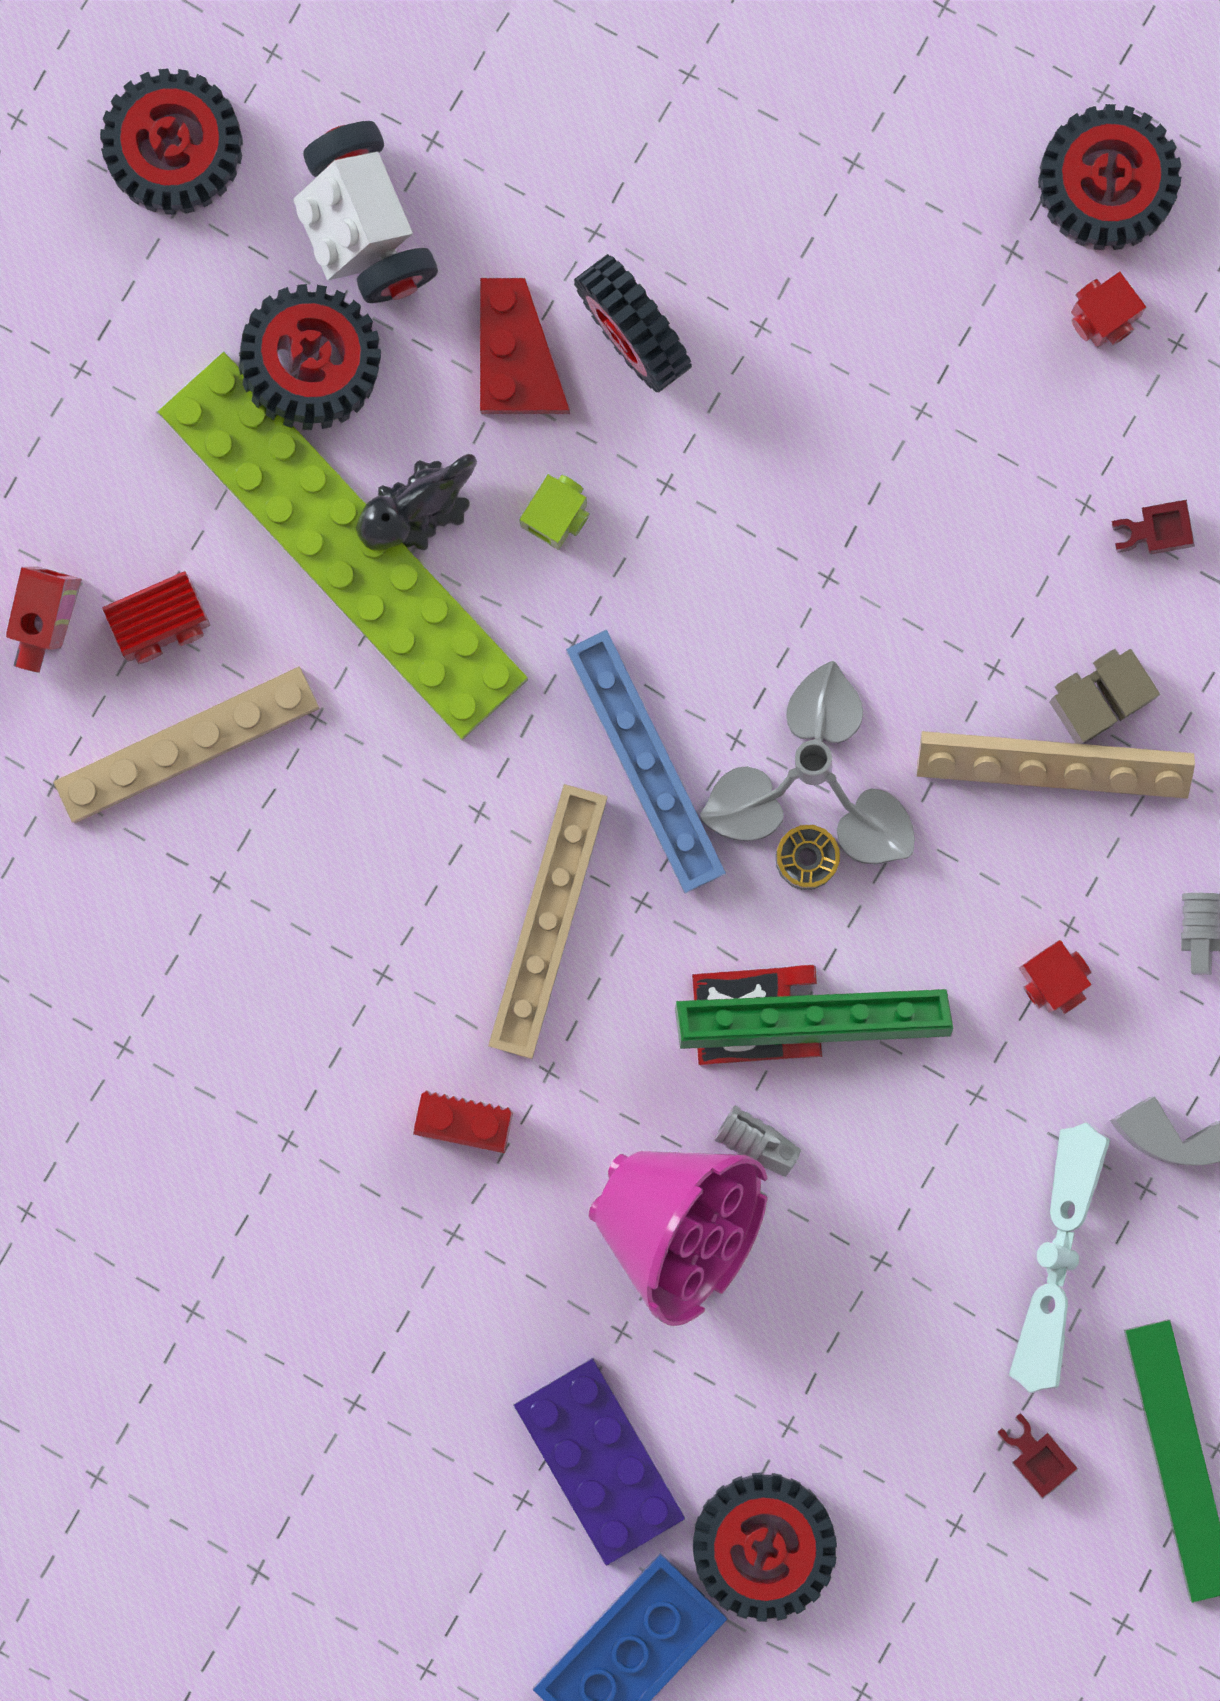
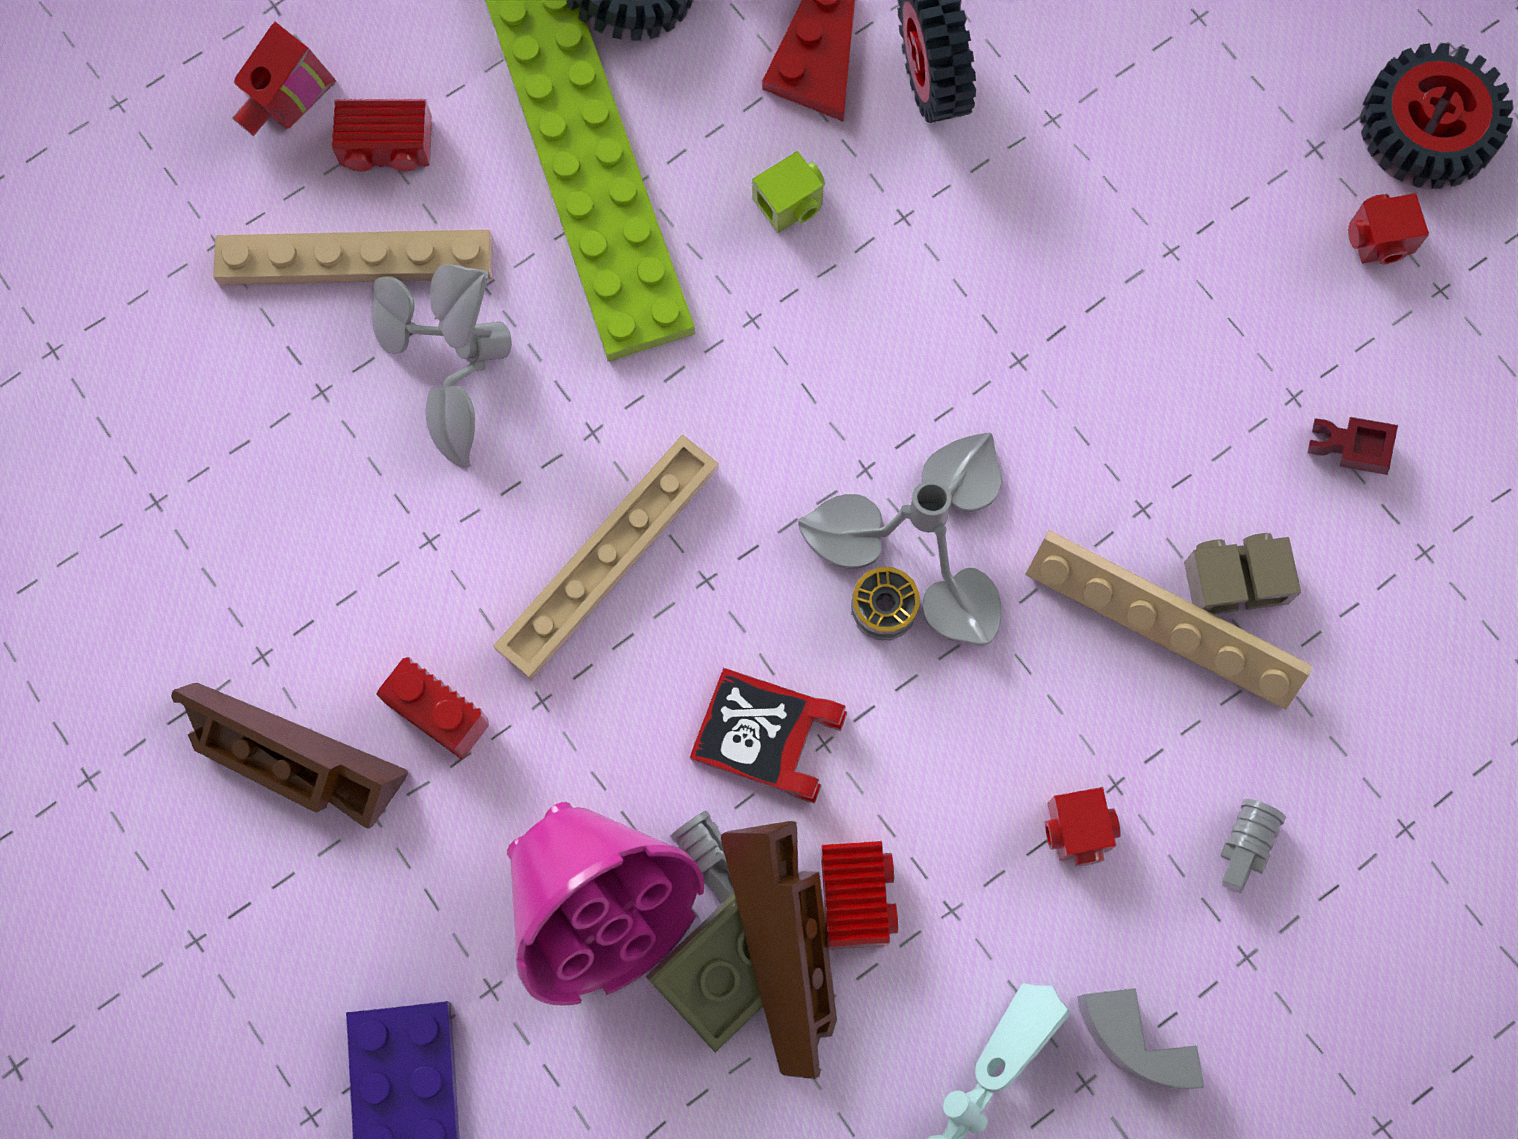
camera: 20 degrees right, 10 degrees down
(337, 776) = (456, 302): none -> light grey plant
(356, 1216) = (288, 756): none -> reddish brown wedge
(414, 510) = (674, 135): black animal -> none
(645, 761) = (770, 451): medium blue plate -> none
(813, 1018) = (822, 758): green tile -> none
(816, 1219) = (711, 977): none -> olive tile
(851, 1185) = (785, 941): none -> reddish brown wedge
(893, 1120) = (857, 896): none -> red brick

